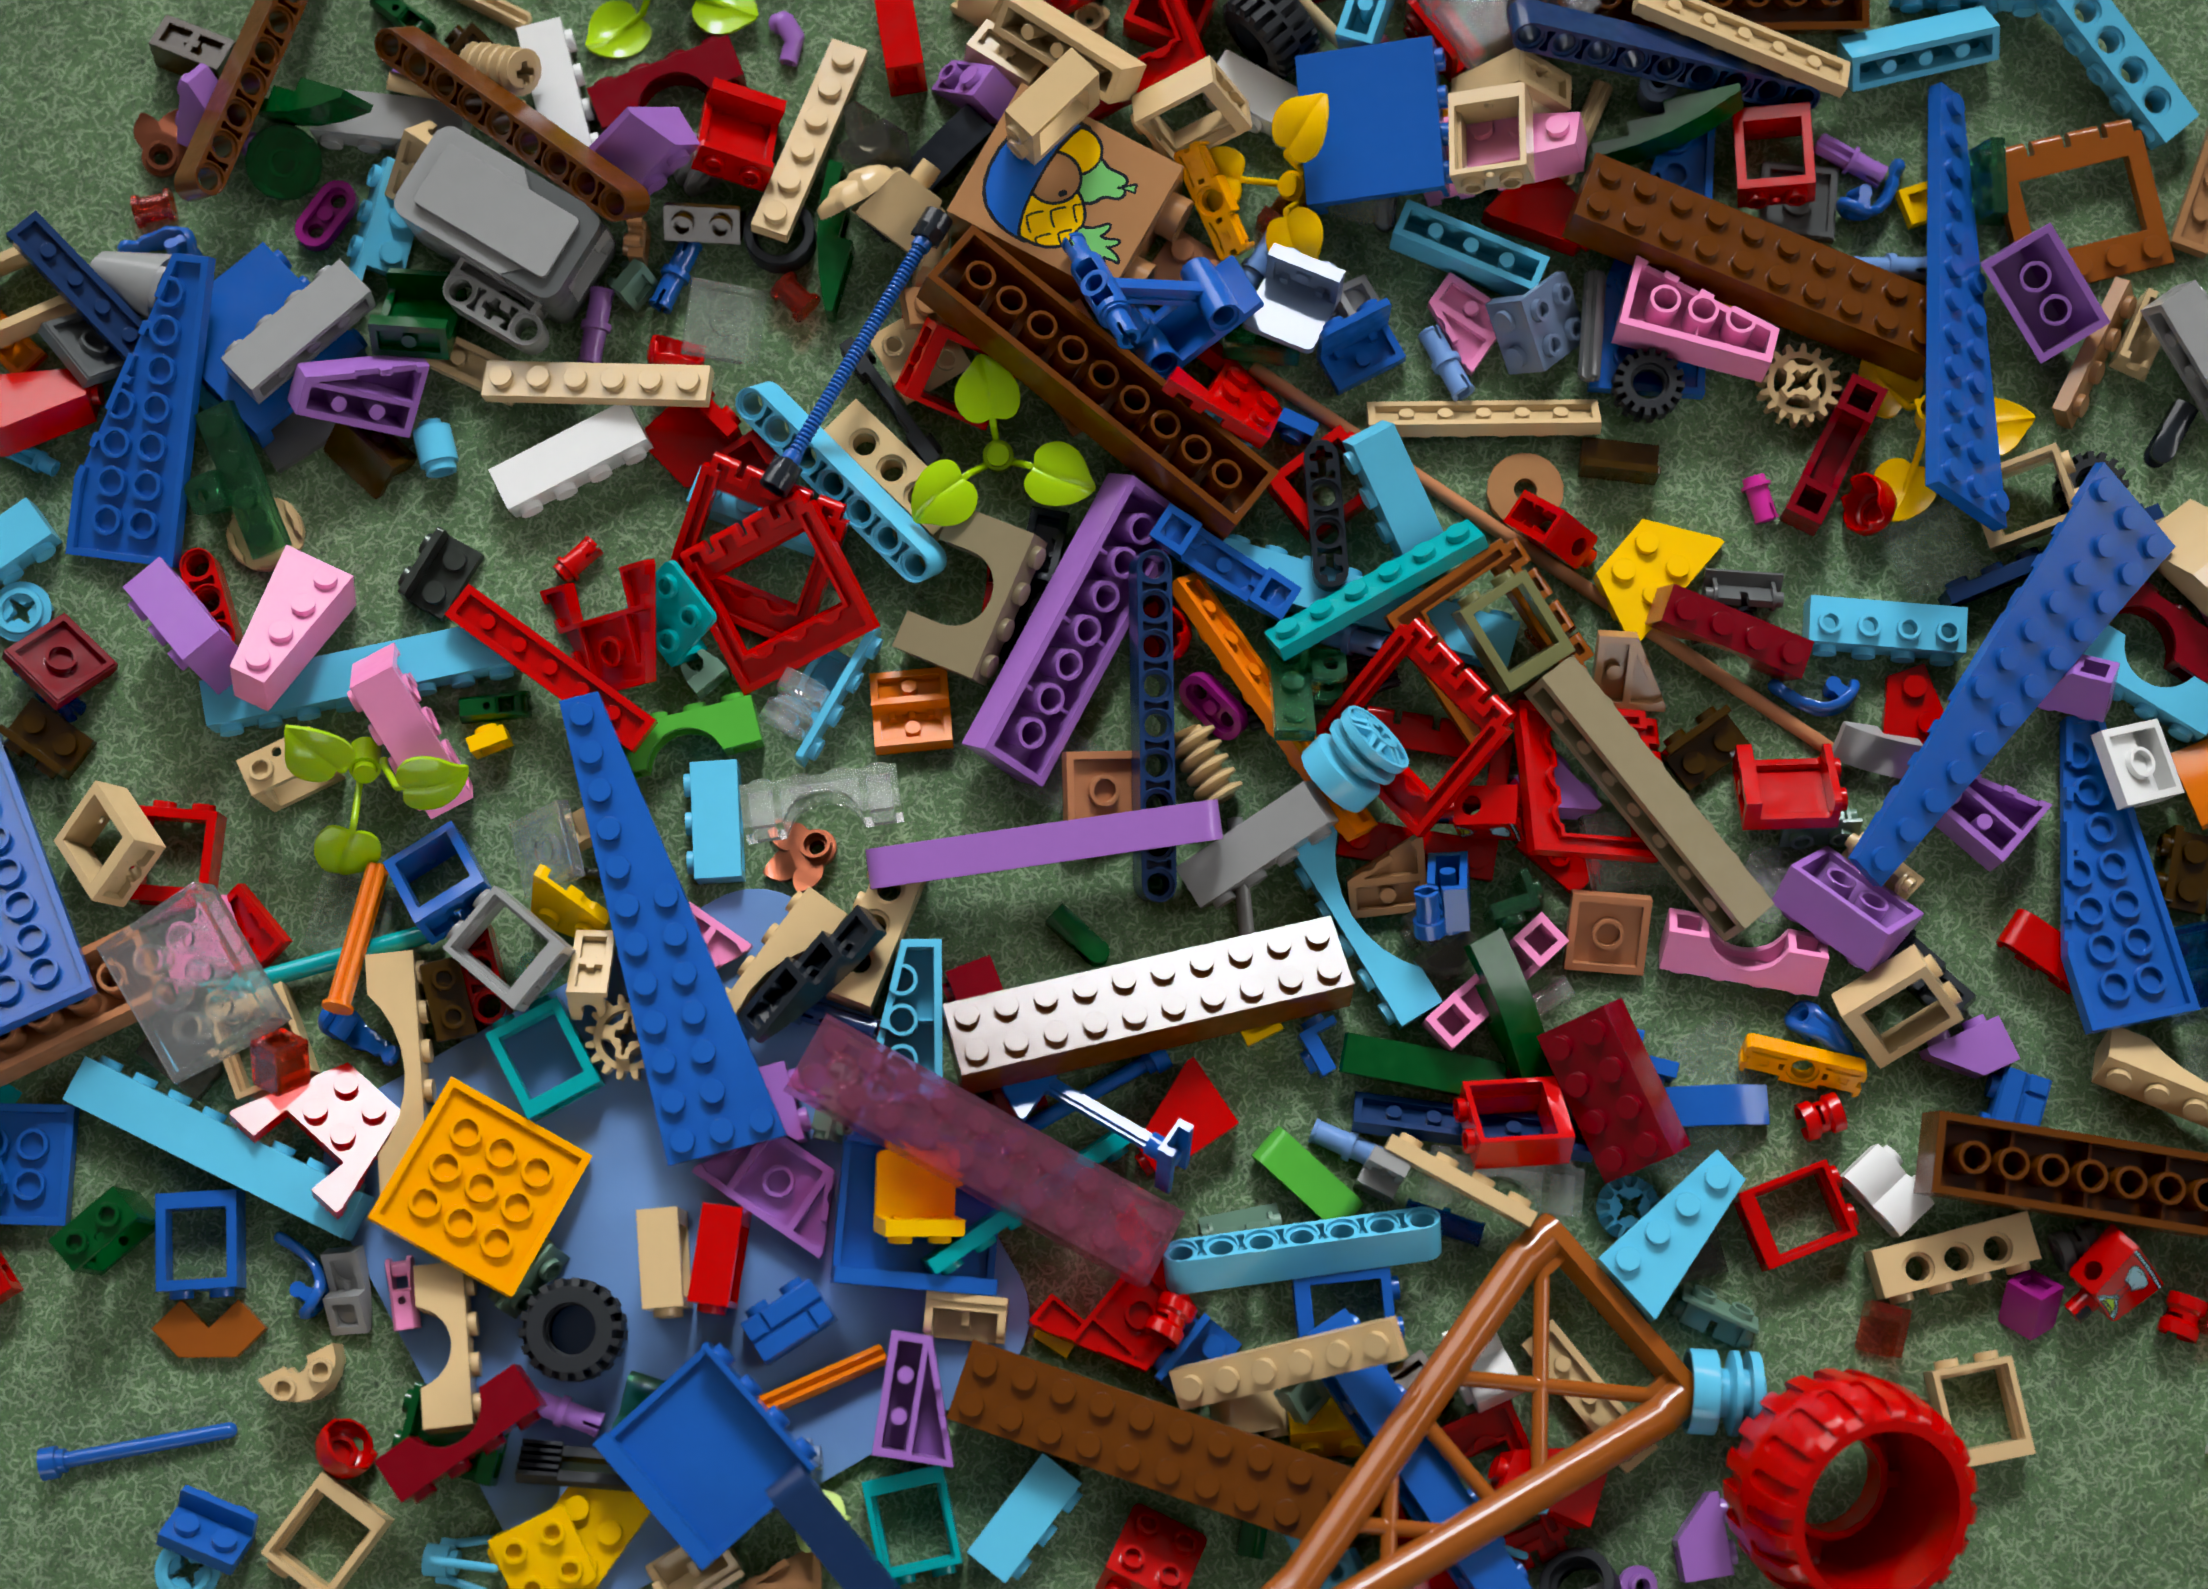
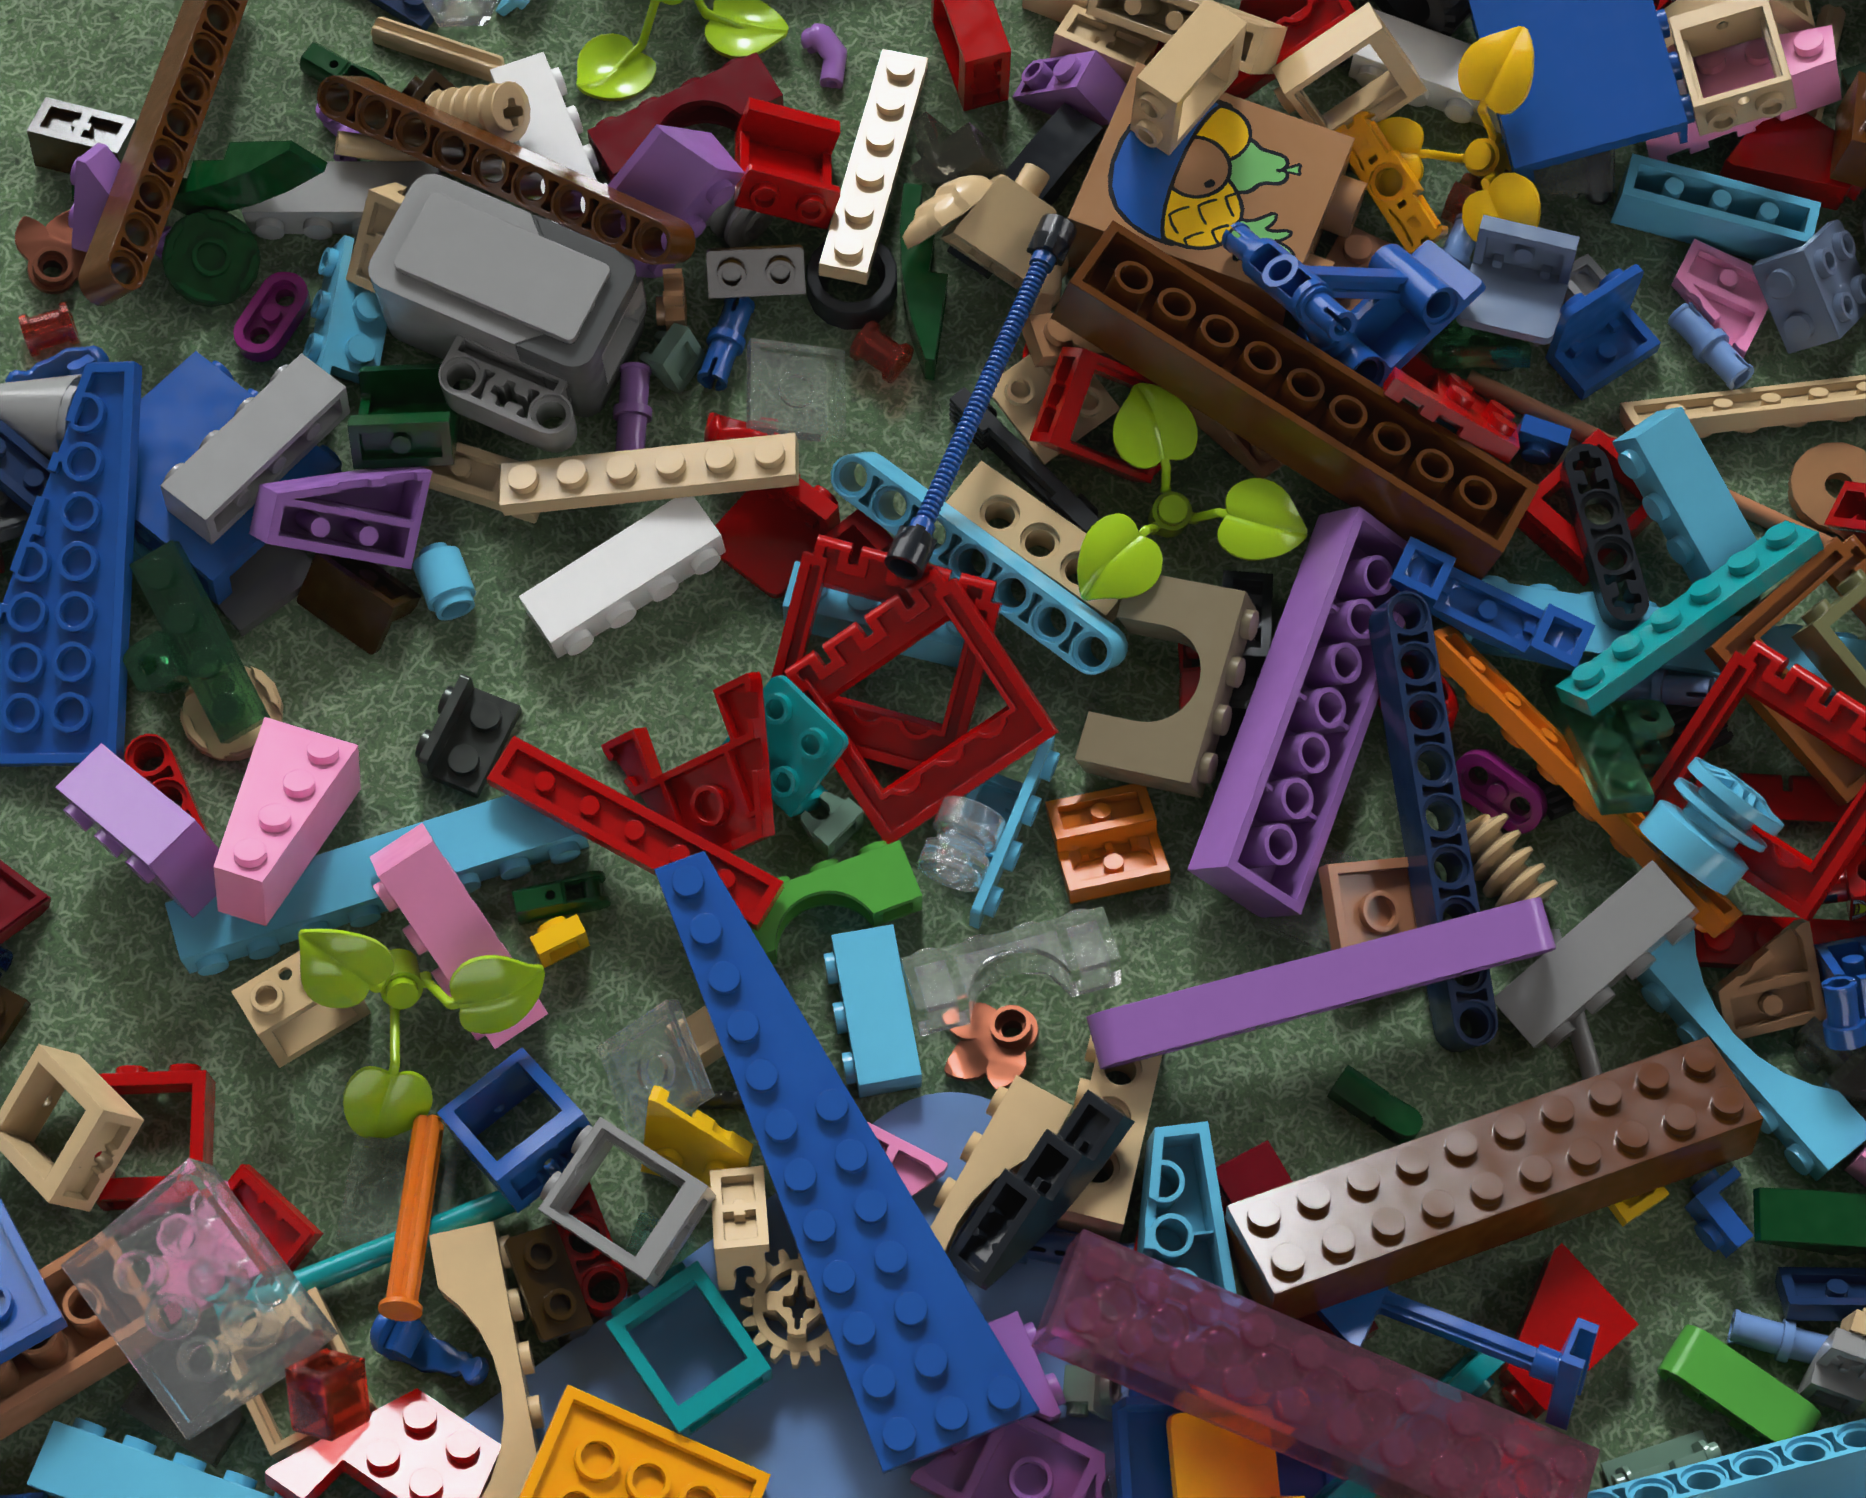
camera: 10 degrees left, 10 degrees down
(577, 560) = (645, 700): red pin -> none
(1149, 1062) = (1496, 1261): blue piece -> none

